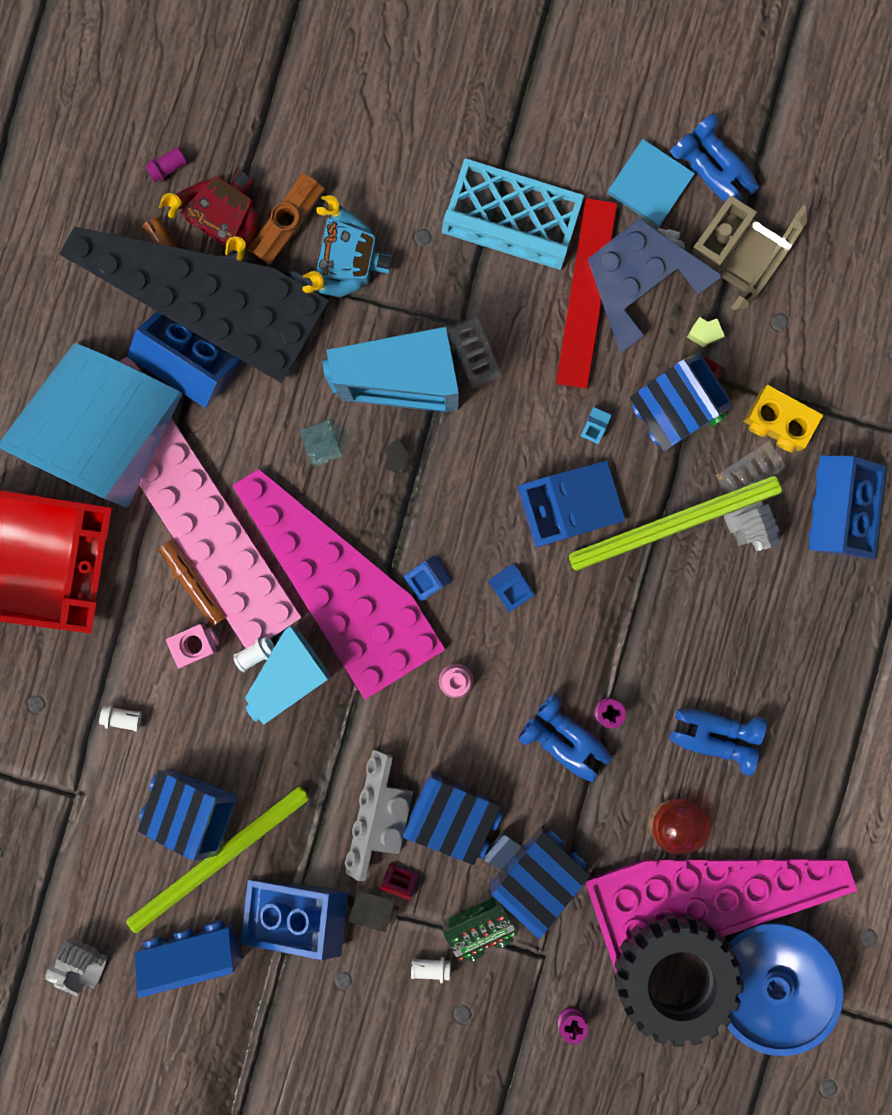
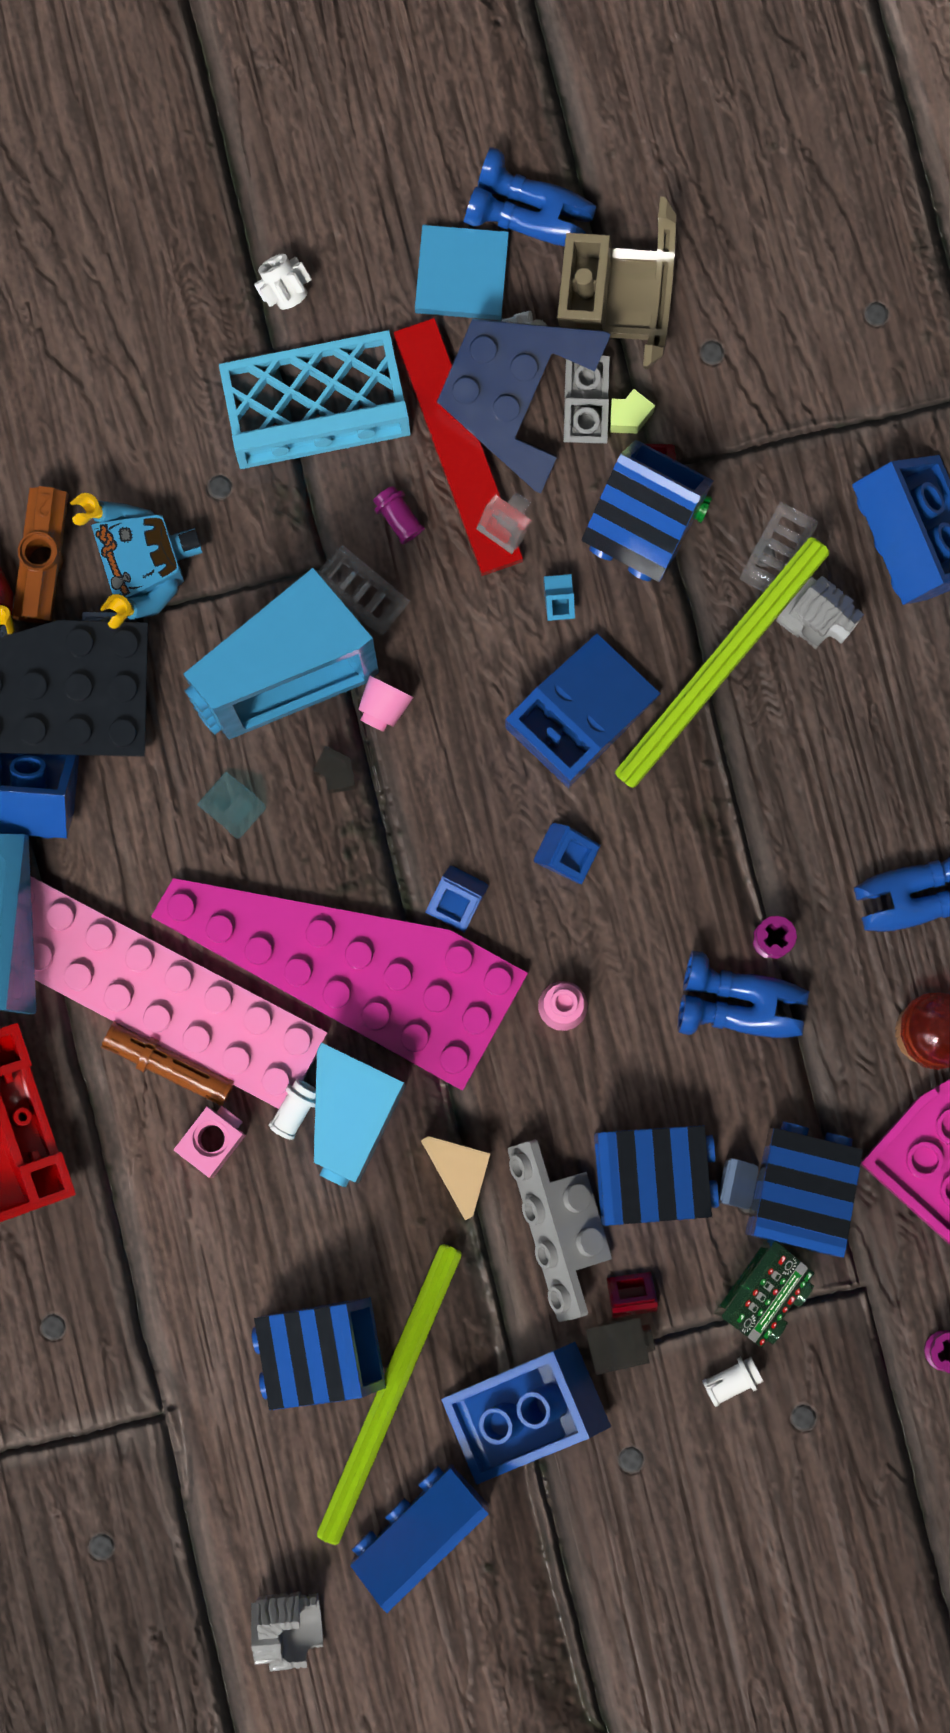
camera: 30 degrees left, 5 degrees down
(119, 718) = (168, 1284): white pin -> none
(336, 748) = (460, 1170): none -> tan slope
(448, 431) = (382, 704): none -> bright pink hat
(524, 316) = (398, 514): none -> magenta pin
(533, 127) = (282, 281): none -> white gear
(588, 359) = (505, 521): none -> clear tile
(682, 311) = (586, 403): none -> light grey slope
(785, 410) = (779, 454): yellow brick -> none

